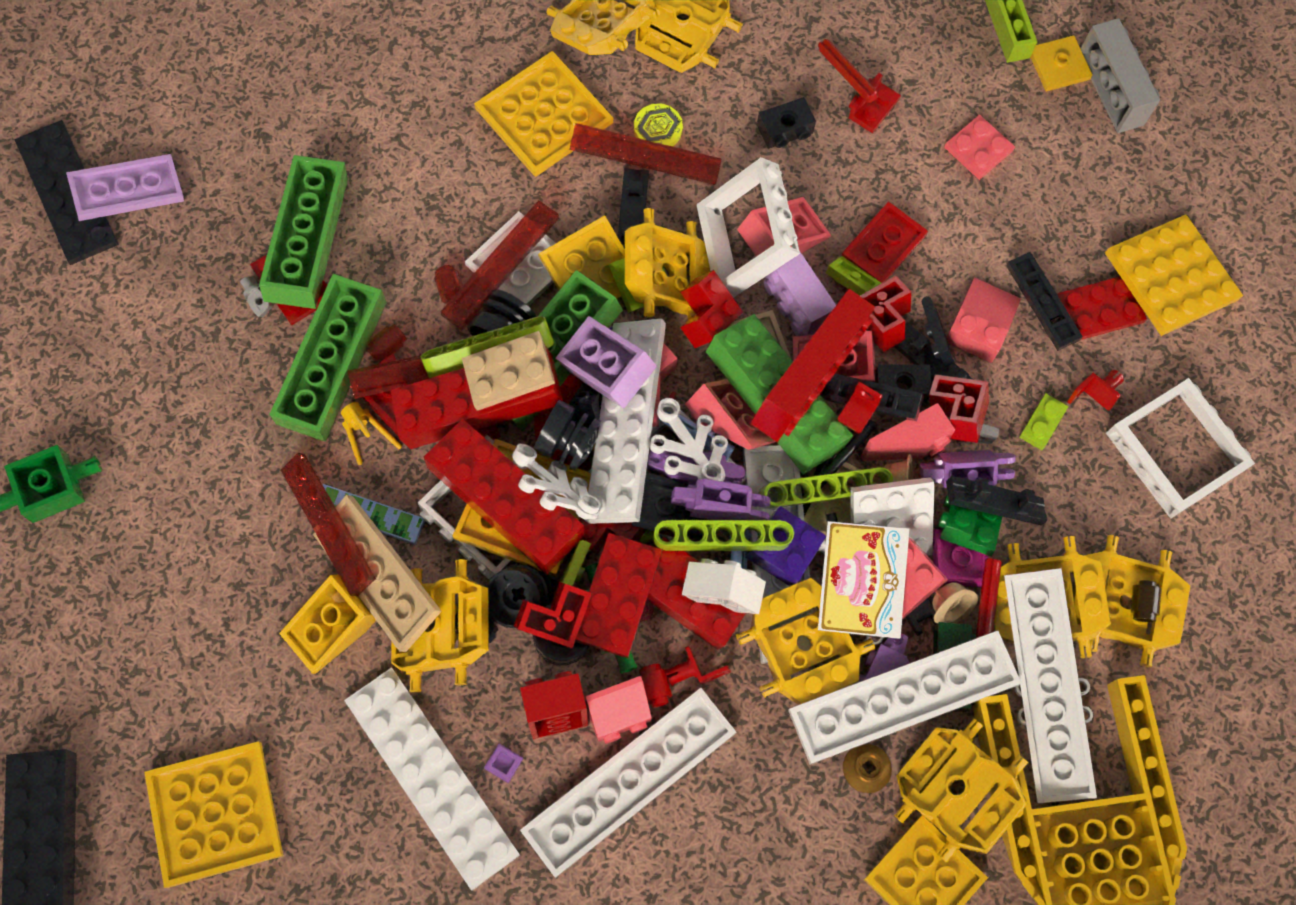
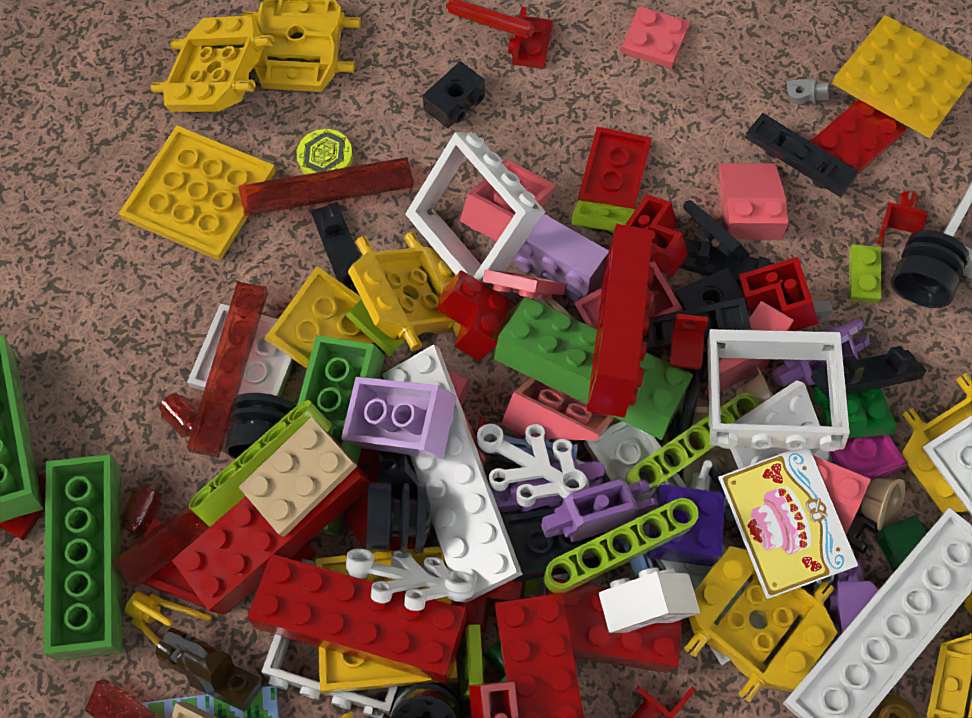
camera: 20 degrees left, 5 degrees down
(381, 482) = (208, 669): none -> dark brown plate
(759, 304) = (523, 284): none -> coral plate
(817, 519) = (702, 480): none -> white hand
(922, 441) = (779, 345): none -> white window
(988, 597) = (916, 479): red axle -> none
(1084, 251) = (810, 91): none -> light grey piece
(1095, 441) = (930, 269): none -> black wheel

